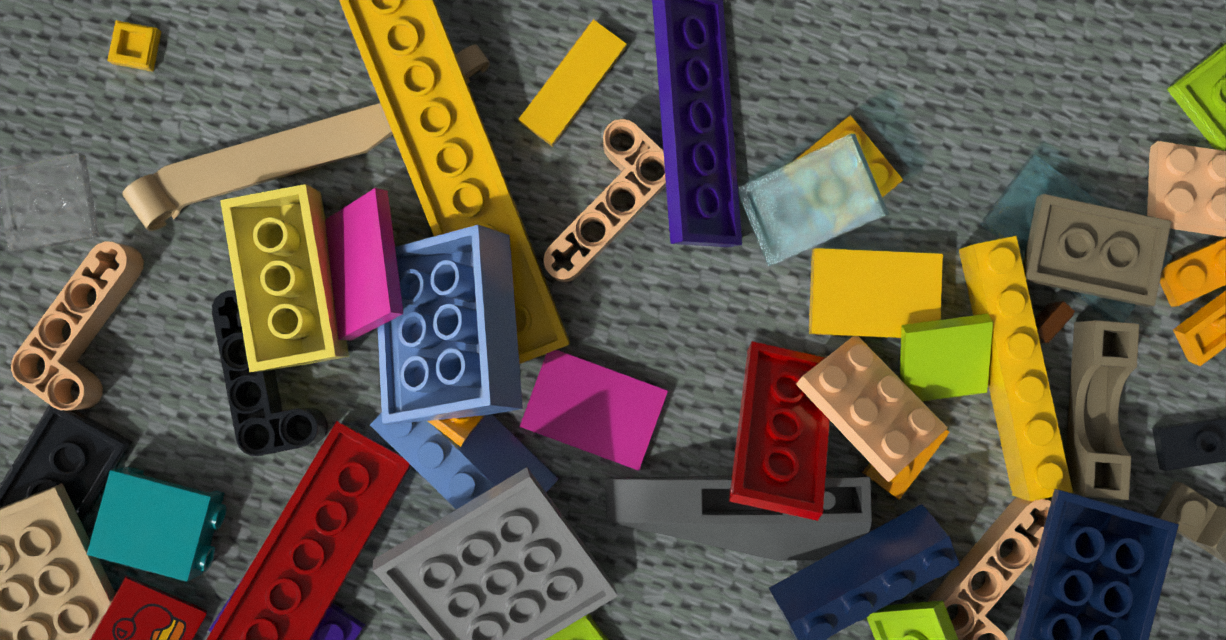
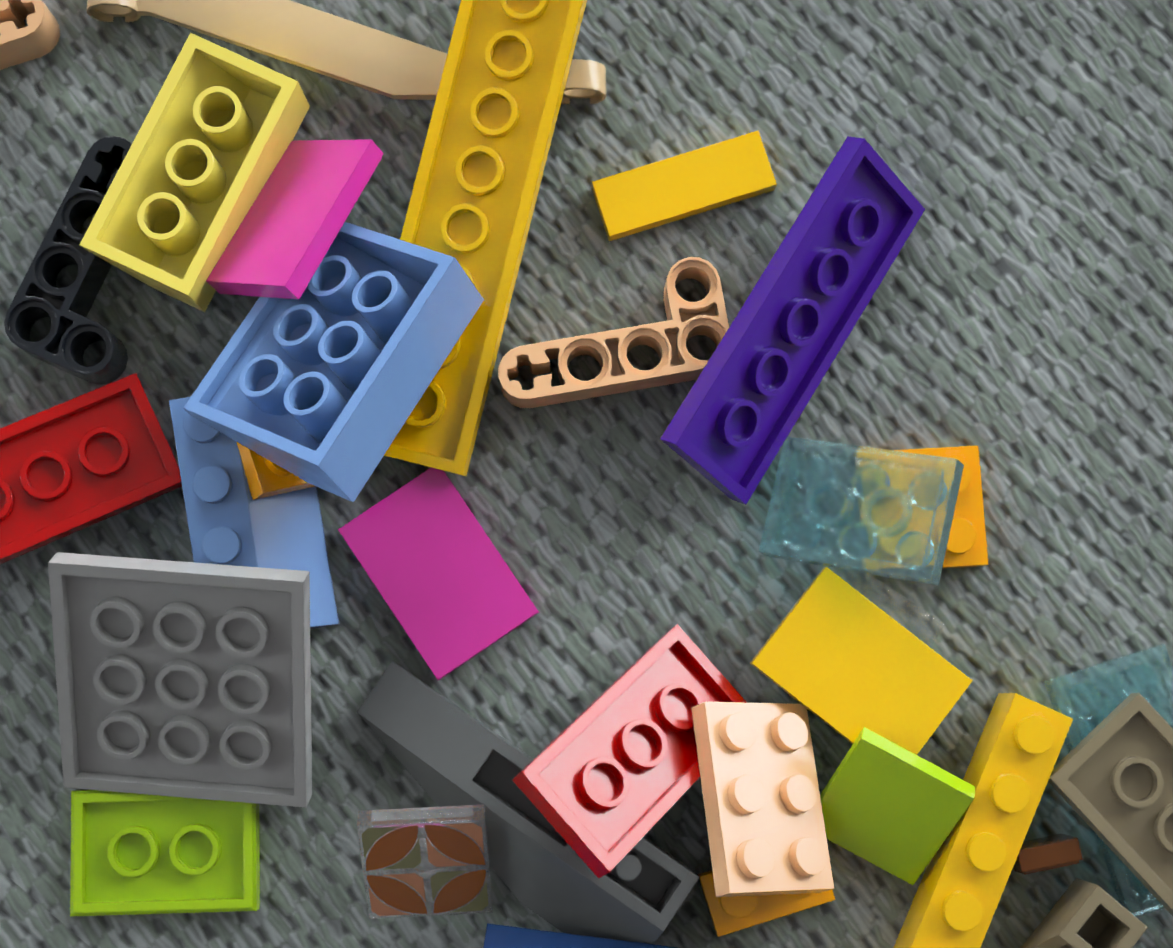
camera: 30 degrees right, 5 degrees down
(707, 577) = (425, 861): none -> tile

